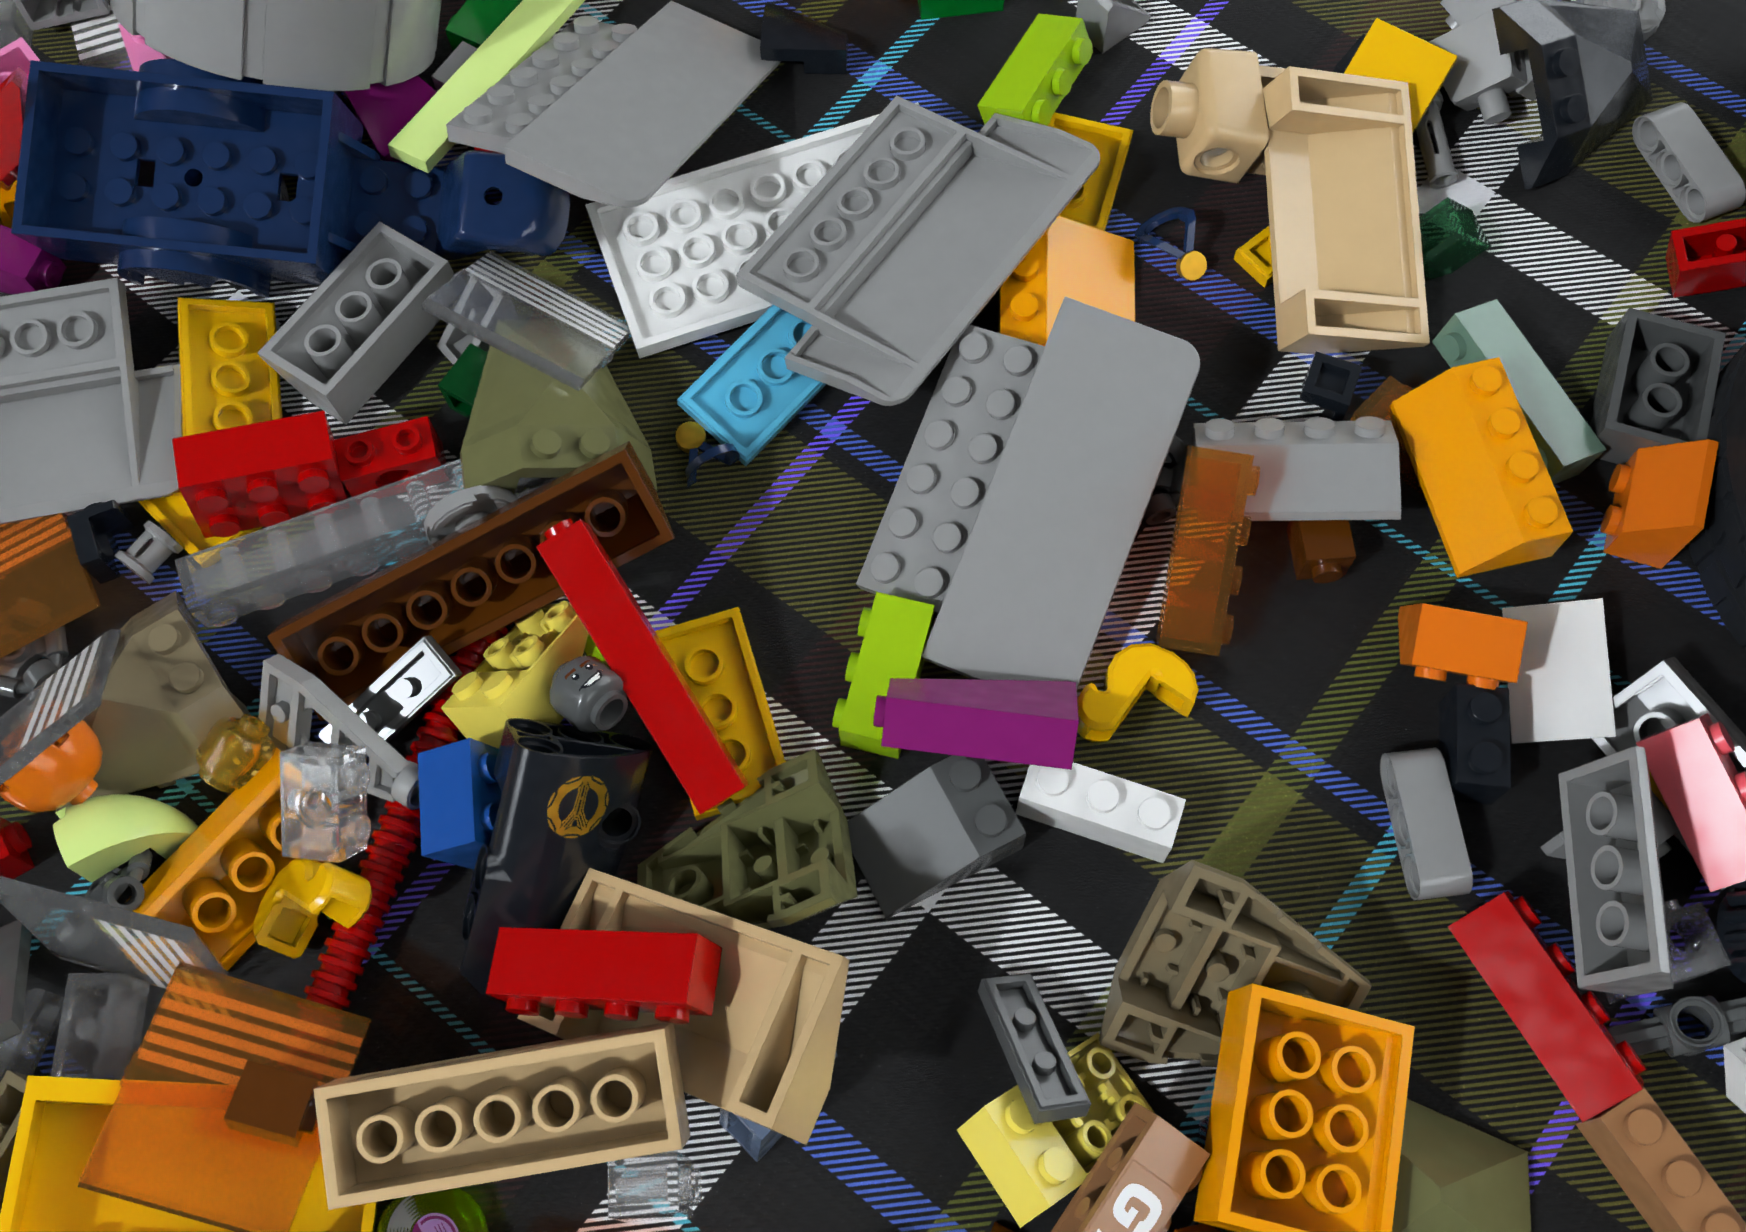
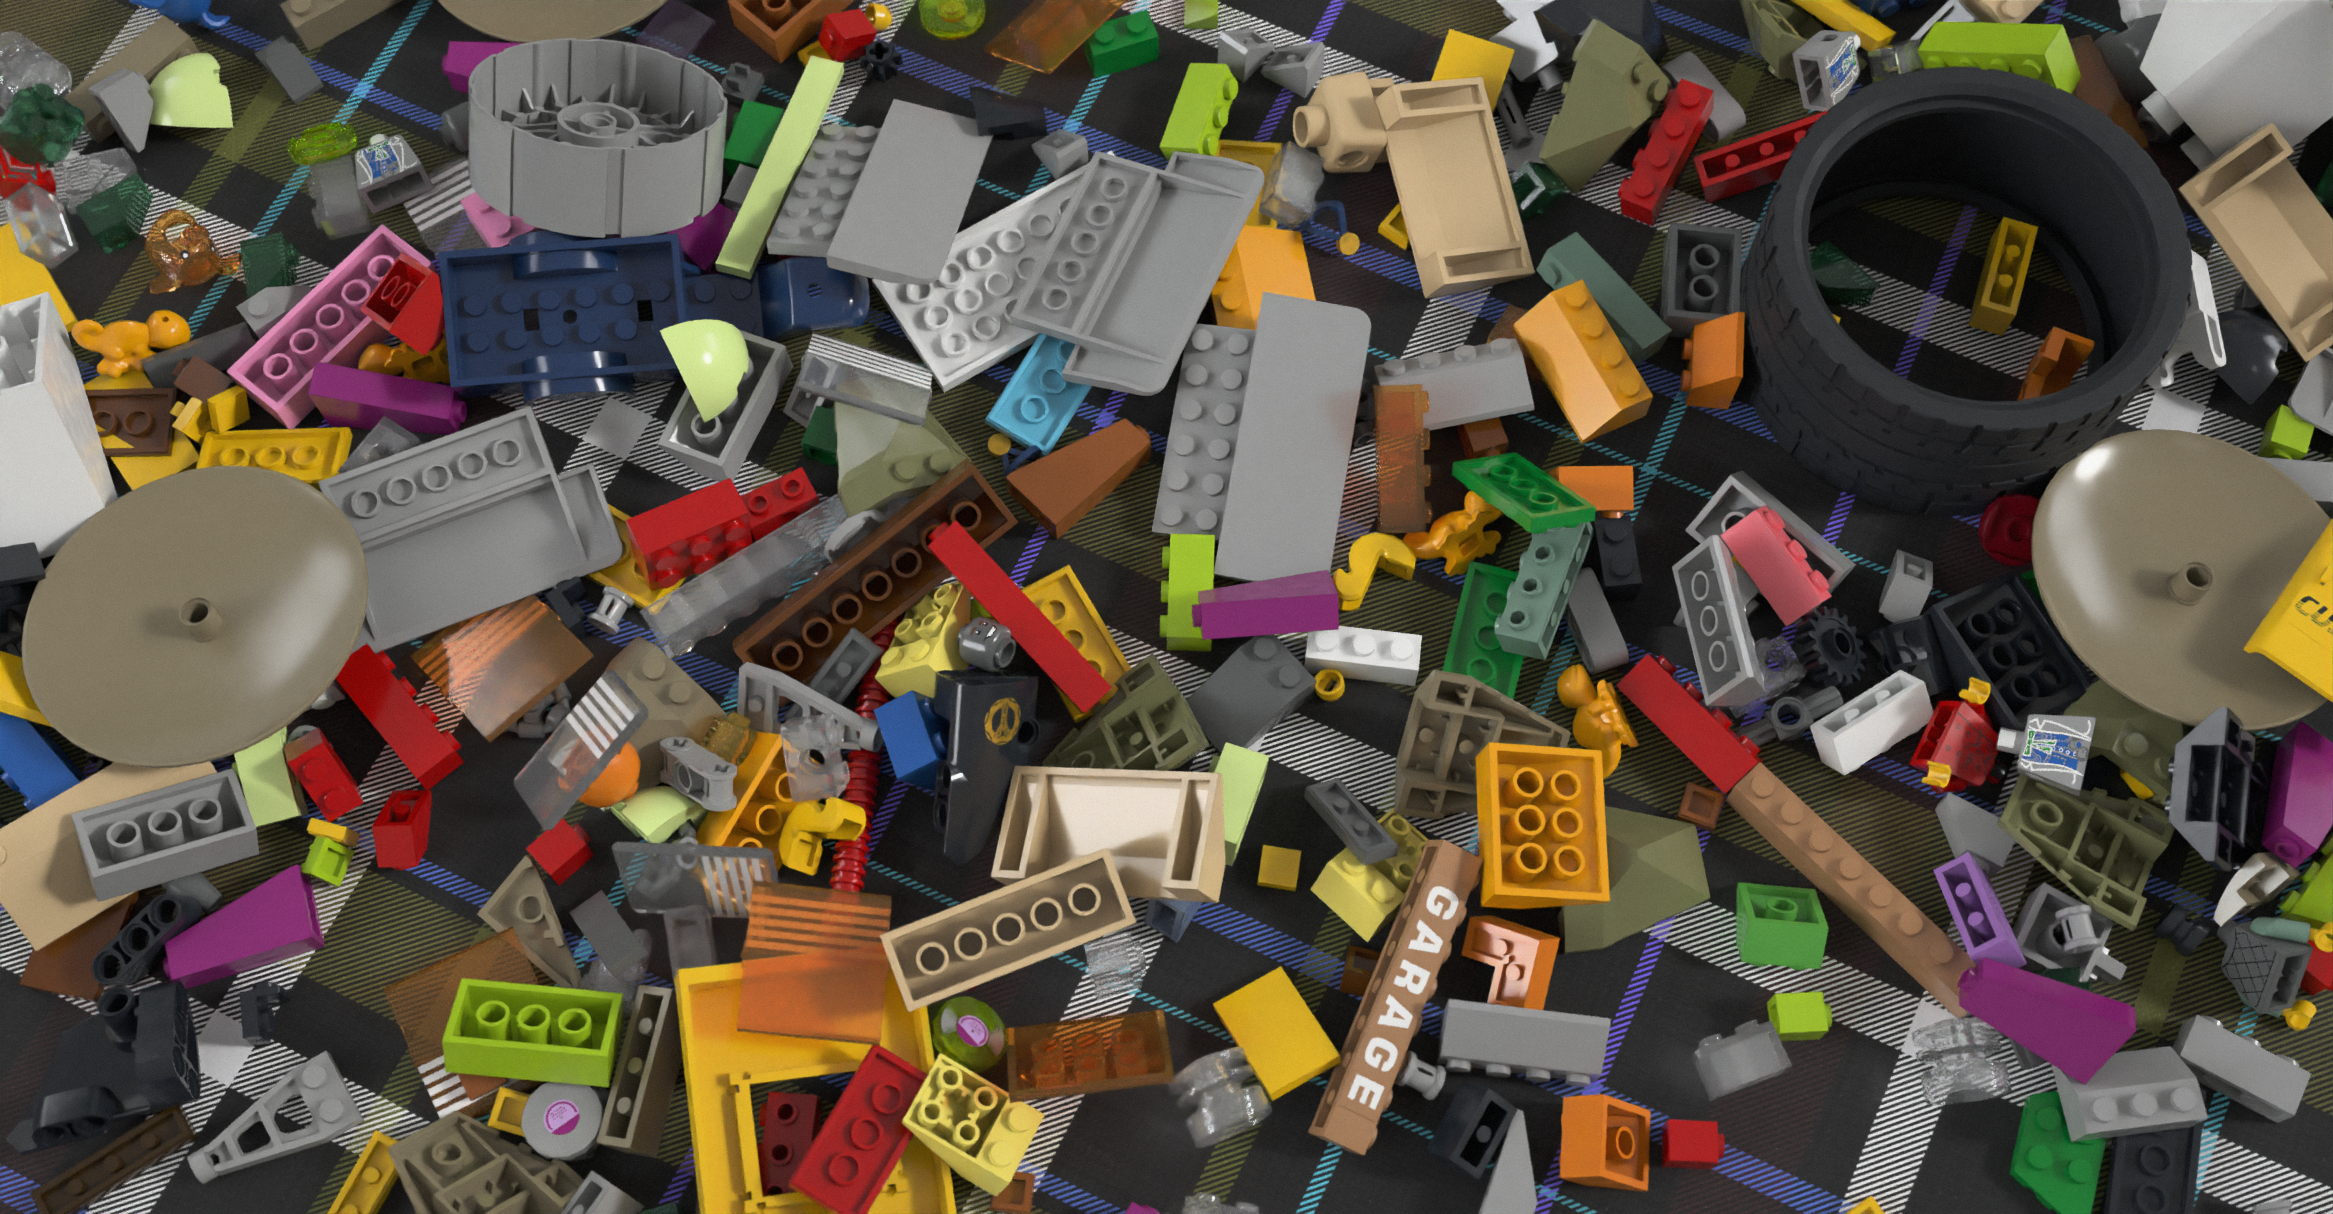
camera: 15 degrees left, 0 degrees up
(173, 792) = (698, 773): none -> light grey piece
(219, 364) = (628, 460): yellow tile -> none
(273, 1104) = (852, 954): reddish brown brick -> none
(338, 260) = (710, 361): none -> yellowish green brick
(605, 971) = (1051, 826): red brick -> none
(781, 493) = (1079, 476): none -> dark orange slope
(857, 95) = (1062, 152): none -> light grey slope
(882, 963) = (1241, 780): none -> yellowish green brick
(921, 1086) = (1279, 868): none -> yellow tile
(1038, 834) = (1324, 681): none -> yellow hinge
(1135, 180) = (1292, 185): none -> clear brick
(1171, 42) = (1296, 67): none -> light grey slope
(1266, 667) = (1458, 535): none -> light orange animal
(1284, 808) = (1473, 643): none -> green plate
(1330, 384) = (1467, 318): black panel -> none
(1369, 631) = (1524, 492): none -> green plate
(1371, 760) = (1542, 590): none -> sand green brick
(1413, 969) = (1599, 718): none -> light orange animal
(1538, 1127) = (1700, 806): none -> dark orange tile
(1562, 674) = (1666, 497): white sticker -> none
(1568, 139) = (1604, 104): none -> olive wedge
(1635, 218) = (1666, 152): none -> red brick

